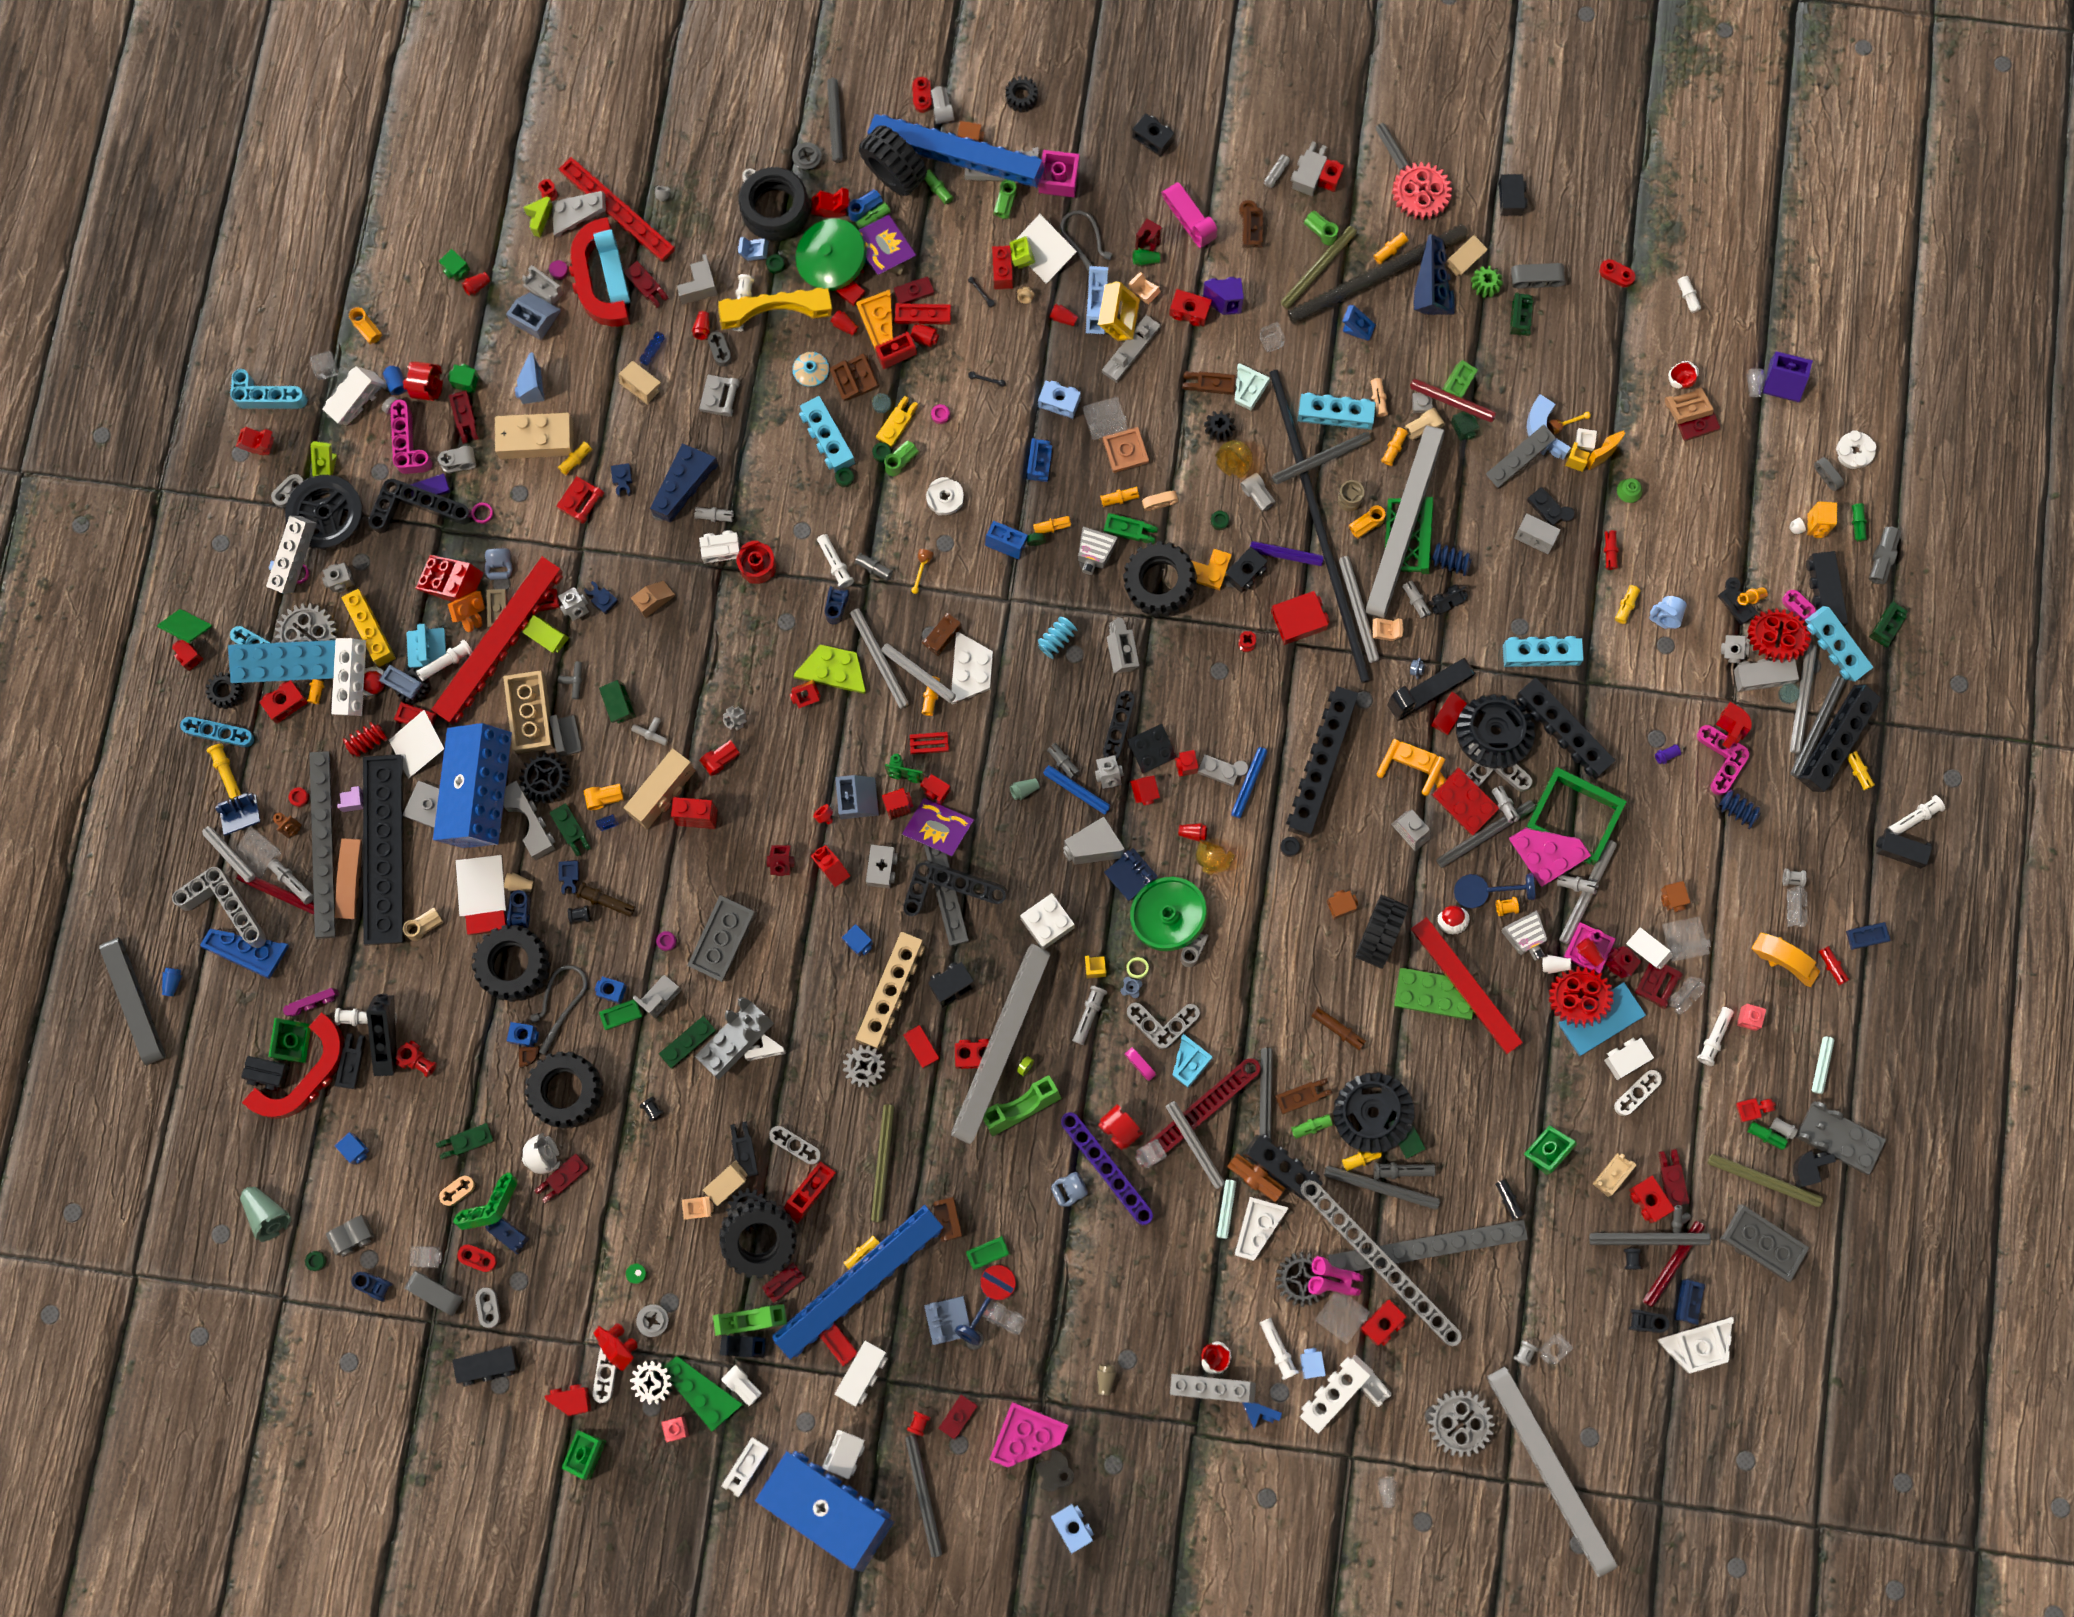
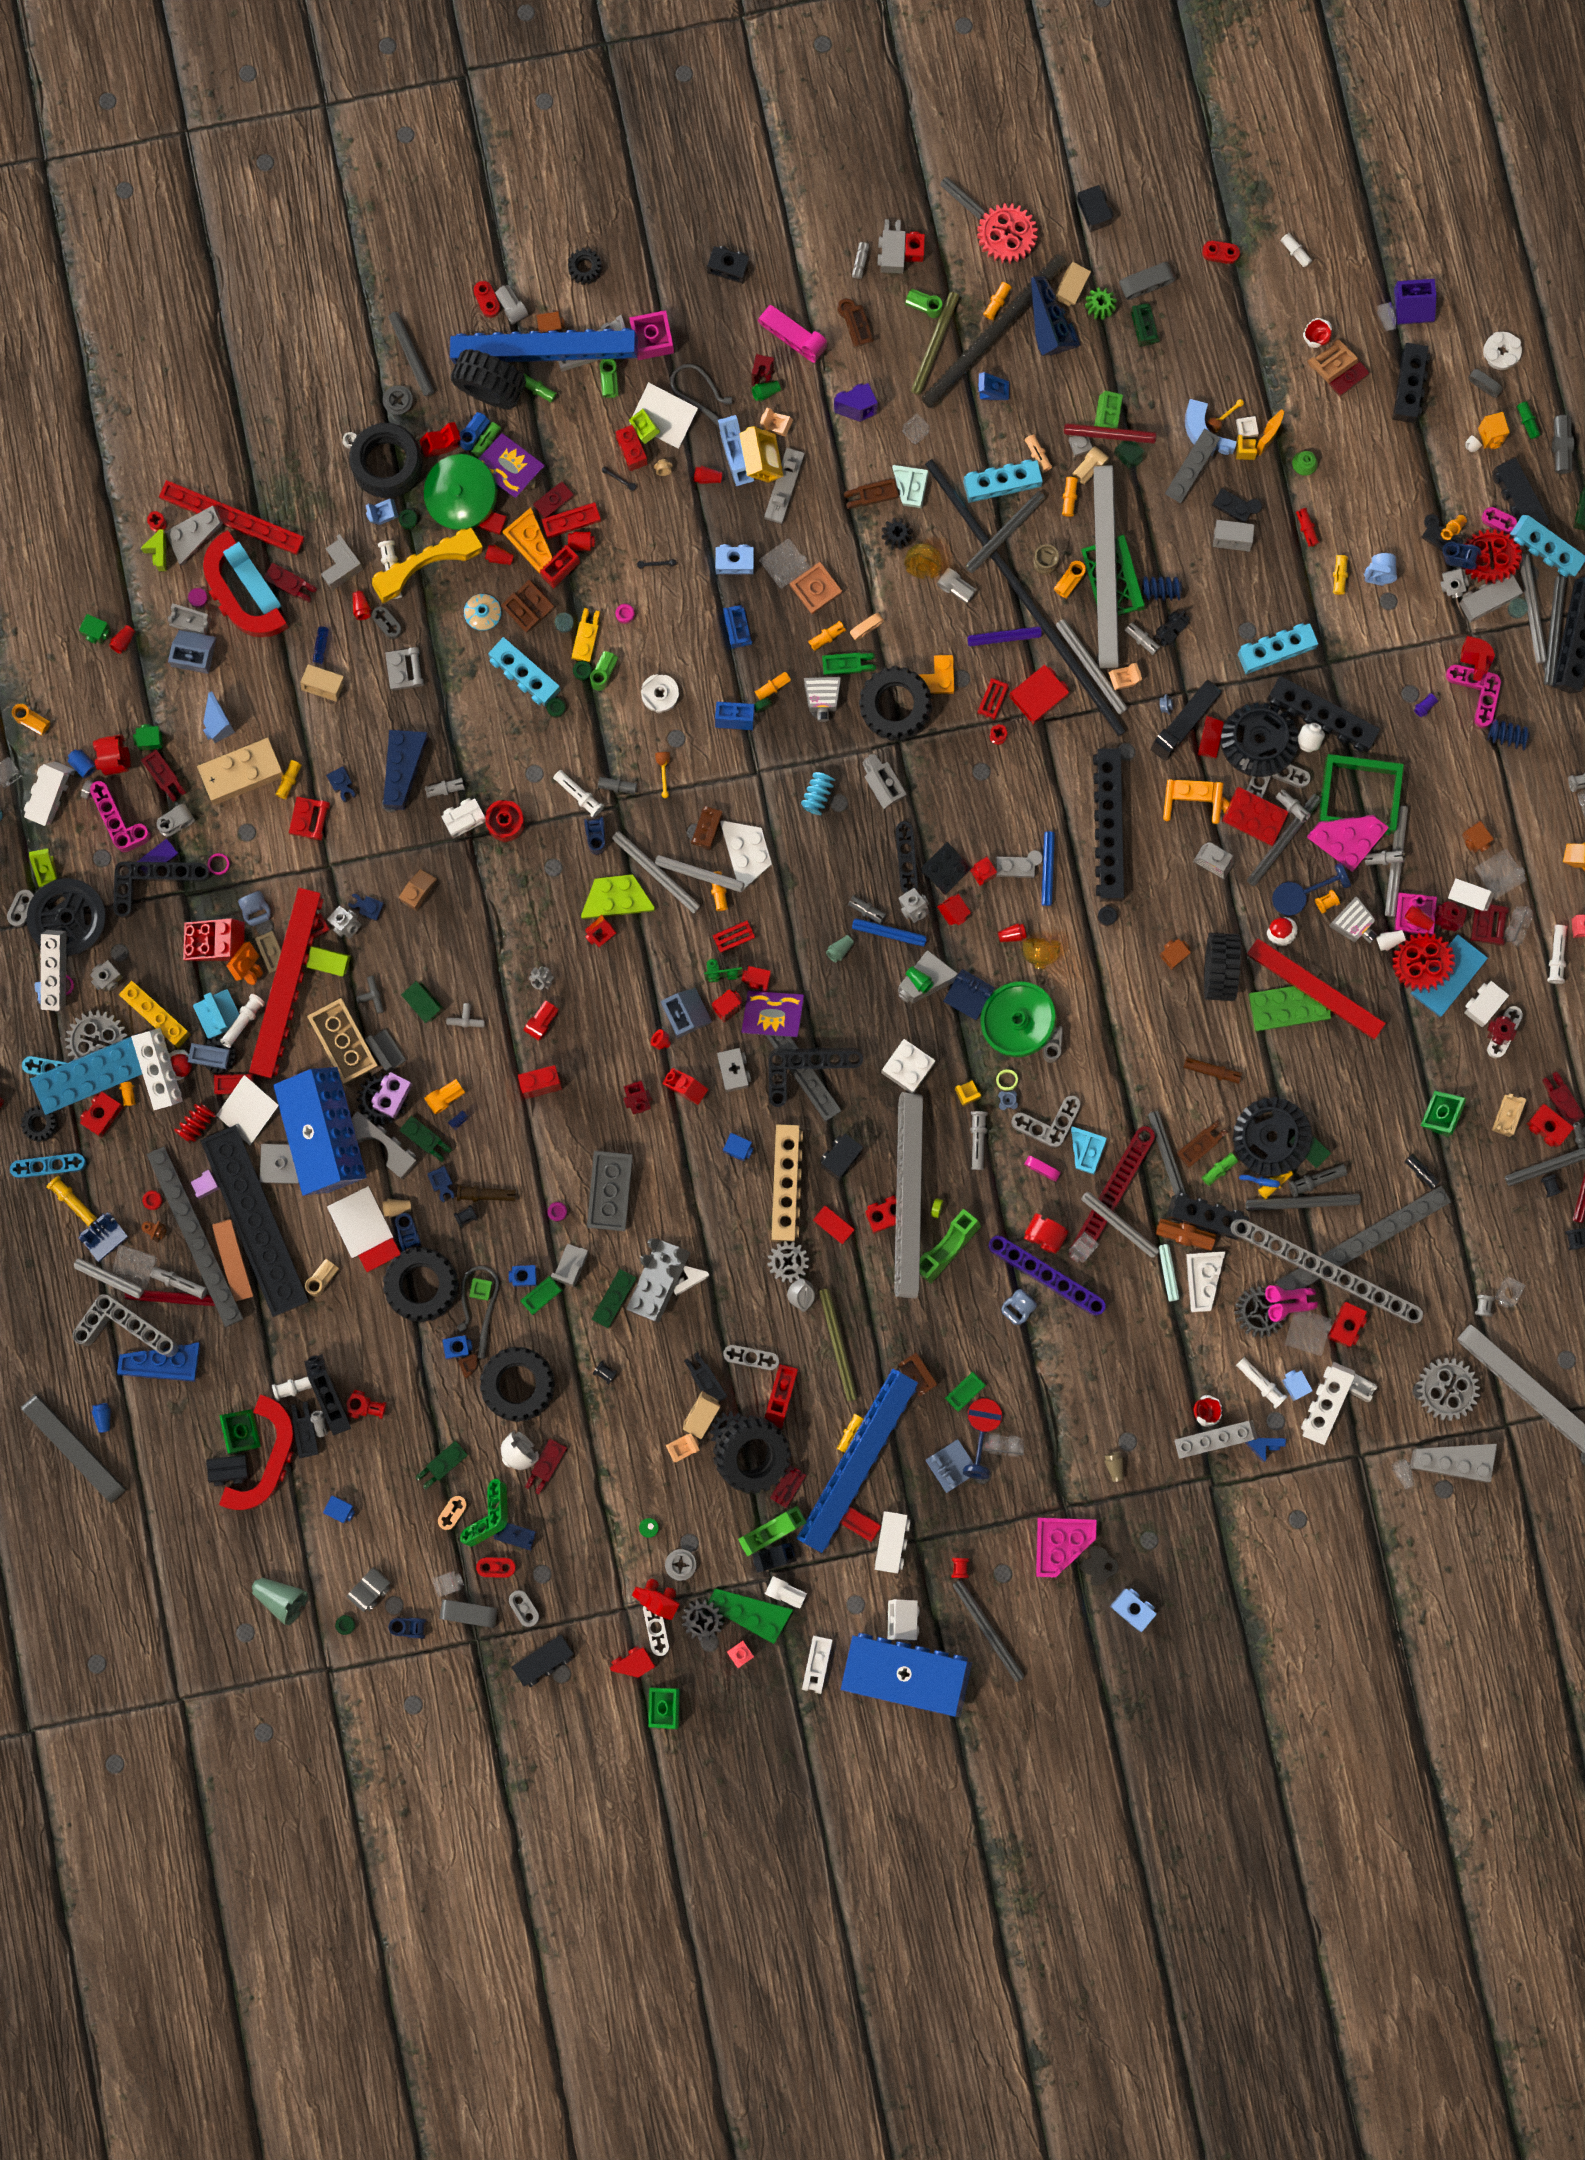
camera: 25 degrees left, 5 degrees up
(309, 1003) = (243, 1390): magenta hinge -> none
(366, 1060) = (319, 1423): none -> light grey pin
(555, 780) = (397, 1097): none -> lavender brick
(566, 988) = (480, 1289): none -> bright green plate
(660, 789) = (497, 1071): tan brick -> none
(662, 193) = (270, 485): light grey hinge -> none
(865, 1101) = (801, 1294): none -> light grey hat
(957, 1417) = (993, 1549): dark red plate -> none
(1085, 841) = (920, 980): none -> green cone
(1185, 299) = (836, 420): red brick -> none
(1219, 520) = (929, 625): dark green tile -> none
(1244, 619) = (987, 713): none -> red tile
(1252, 560) = (976, 655): black brick -> none
(1347, 1152) = (1262, 1181): none -> blue piece
(1448, 1500) = (1463, 1462): none -> light grey wedge
(1545, 745) = (1311, 737): none -> white head
(1628, 1092) = (1495, 1030): none -> dark red brick
(1752, 625) = (1465, 555): none -> dark blue piece
(1767, 424) = (1411, 354): none -> black brick

